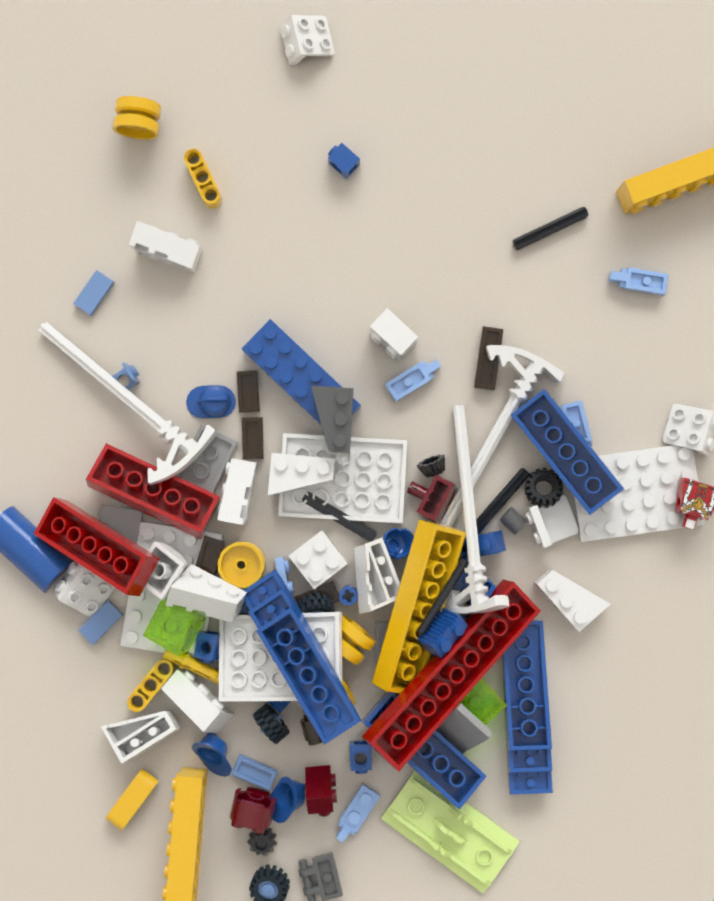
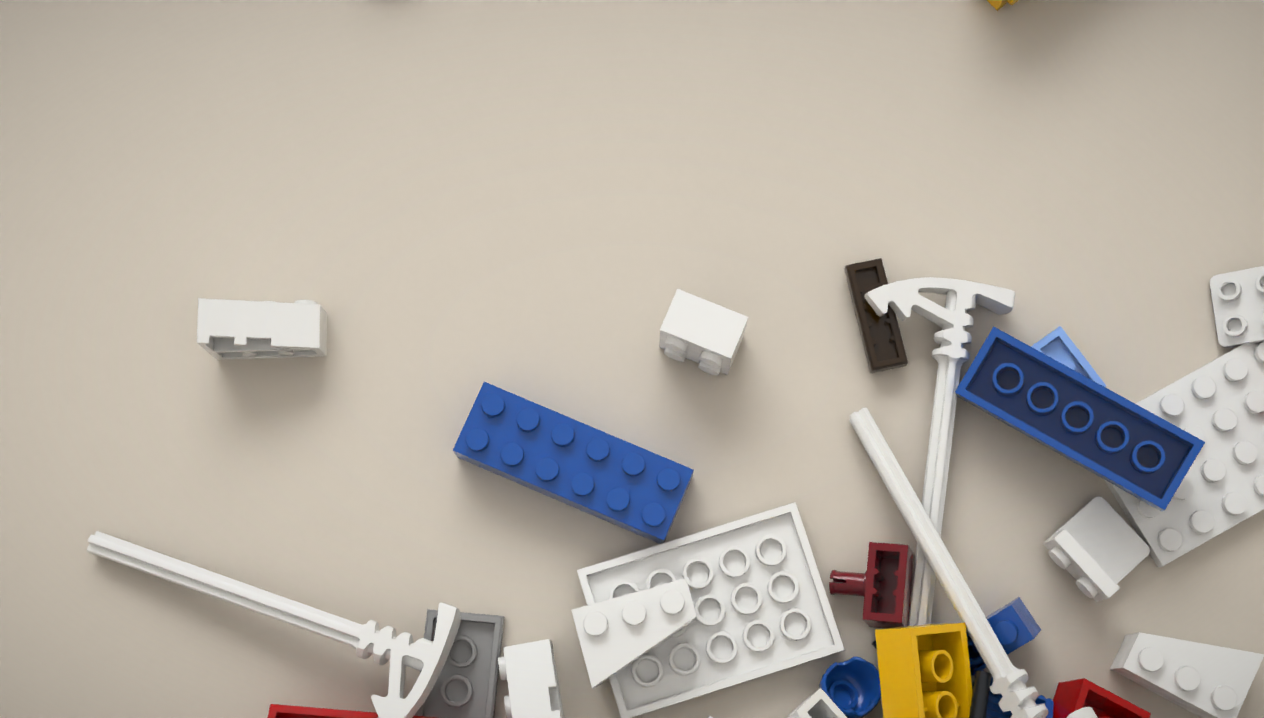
camera: 20 degrees left, 10 degrees down
(94, 293) = (164, 451): medium blue tile -> none
(132, 374) = (274, 564): medium blue bracket -> none
(137, 117) = (143, 136): yellow wheel -> none
(198, 170) = (279, 183): yellow beam -> none
(211, 401) = (431, 563): blue piece -> none
(248, 391) = (490, 521): dark brown tile -> none
(252, 438) = (526, 599): dark brown tile -> none
(335, 415) = (660, 502): dark grey wedge -> none
(343, 160) = (511, 85): blue brick -> none
(354, 526) = (762, 687): black axle -> none
(411, 379) = (761, 397): light blue hinge -> none
(432, 466) = (856, 529): black piece -> none
(501, 499) = (997, 540): black axle -> none
(513, 520) = (1031, 573): dark grey beam -> none
(543, 500) = (1065, 475): black tyre -> none
(550, 228) = (888, 73): black axle -> none
(640, 280) = (1069, 101): light blue hinge -> none

